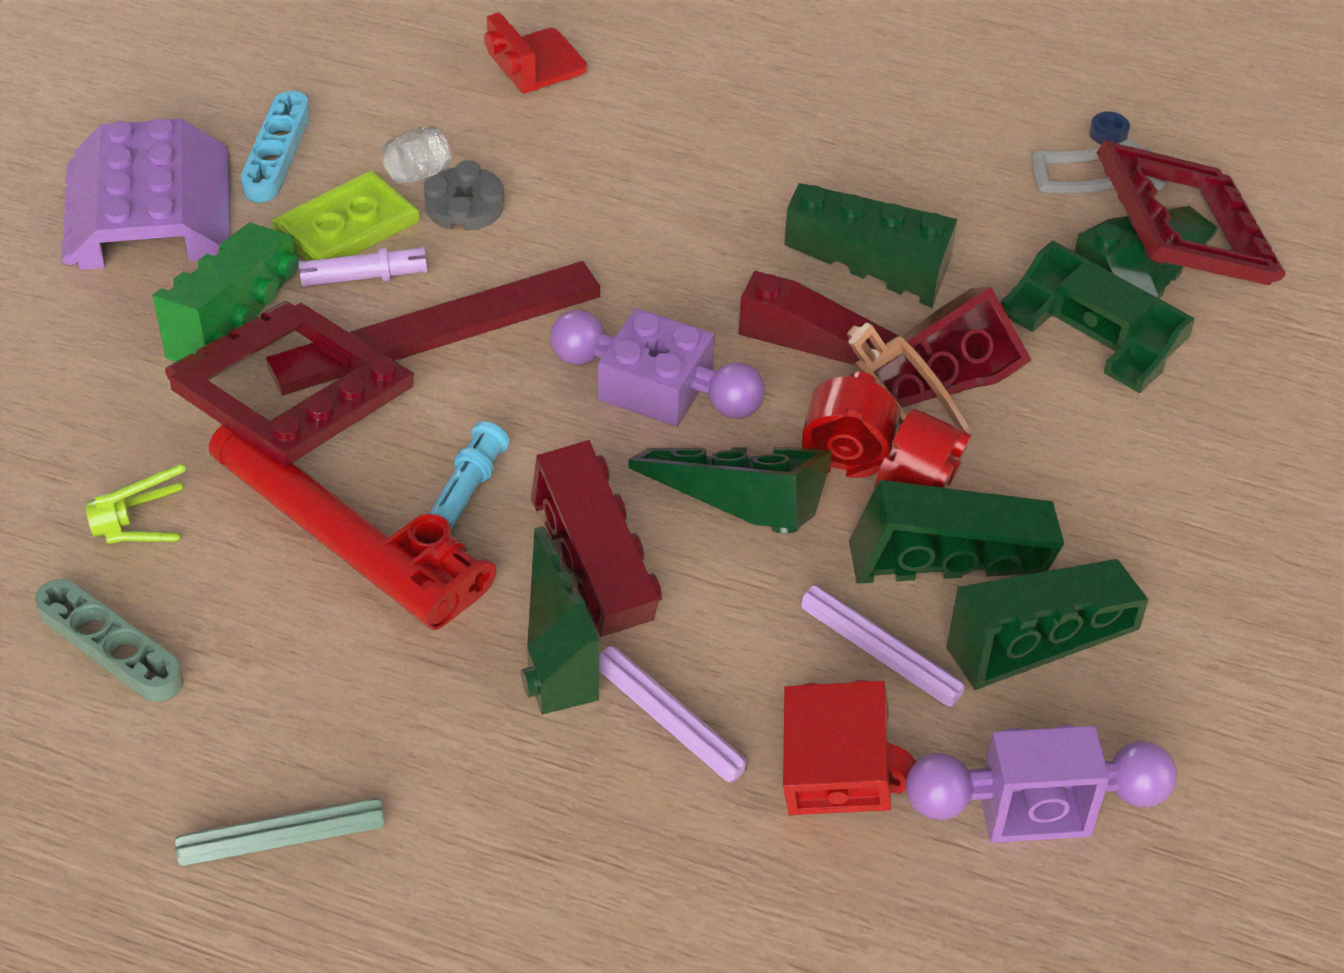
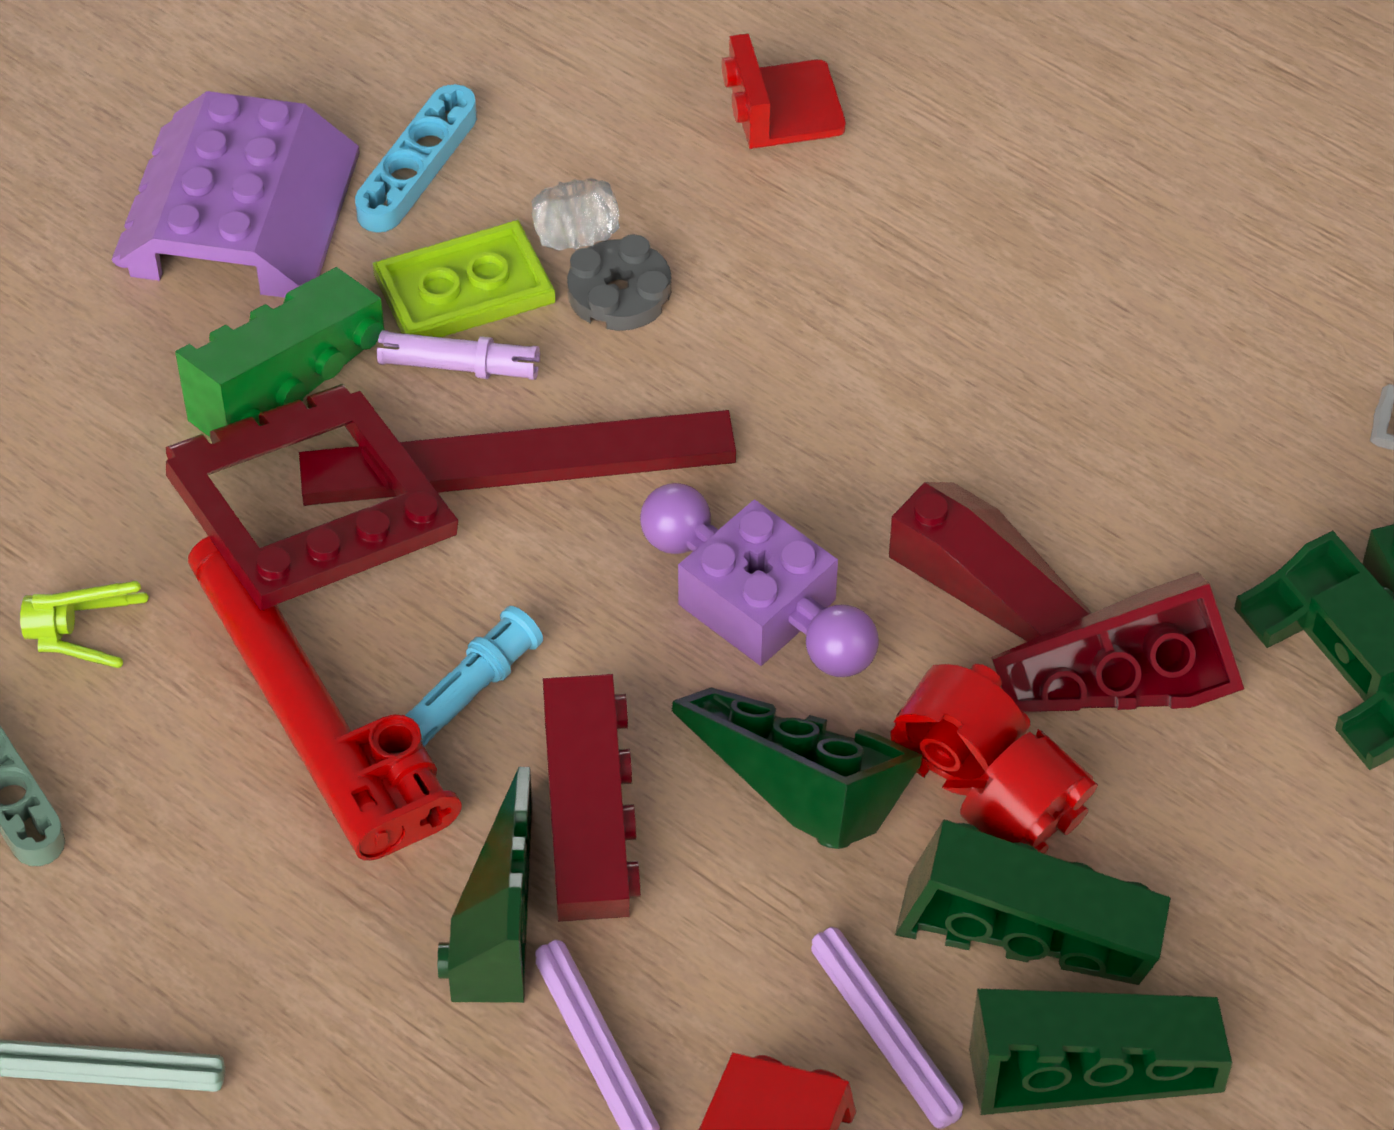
camera: 20 degrees right, 5 degrees up
(872, 238) = (1109, 468): dark green wedge -> none
(874, 359) = (1040, 641): nougat sword -> none

